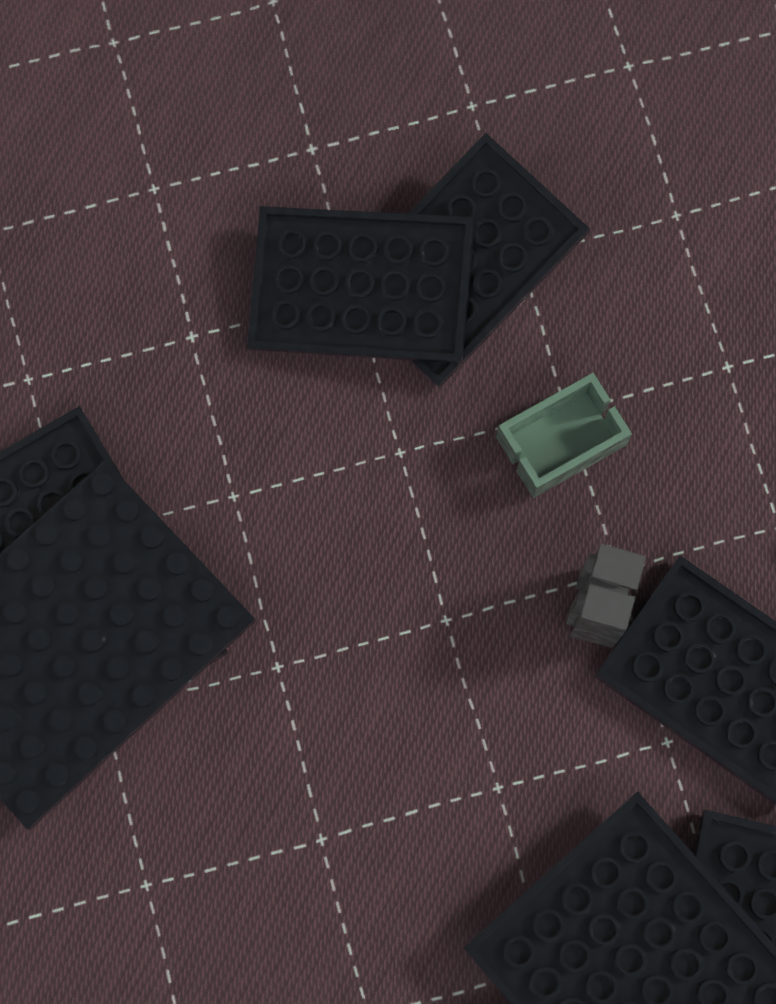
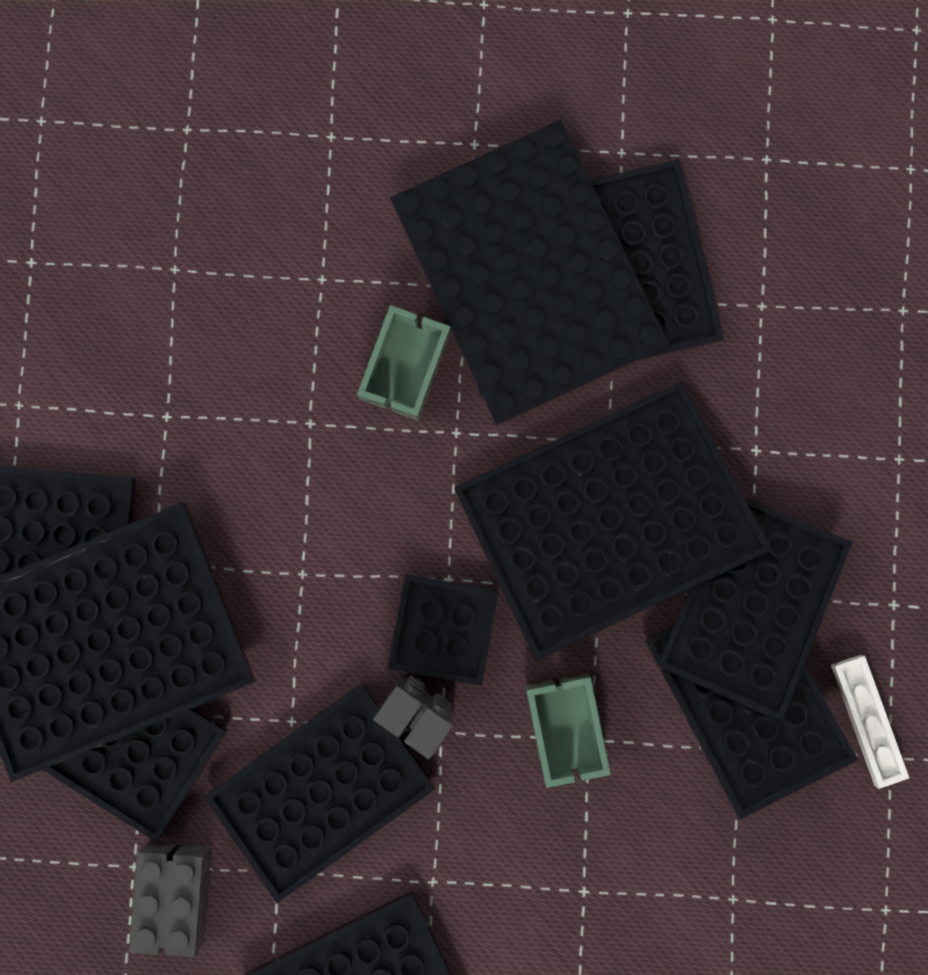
camera: 110 degrees right, 10 degrees up
(217, 746) = (404, 363): none -> sand green piece
(321, 464) = (610, 520): none -> black plate
(441, 136) = (870, 721): none -> white plate
(503, 605) = (443, 629): none -> black plate

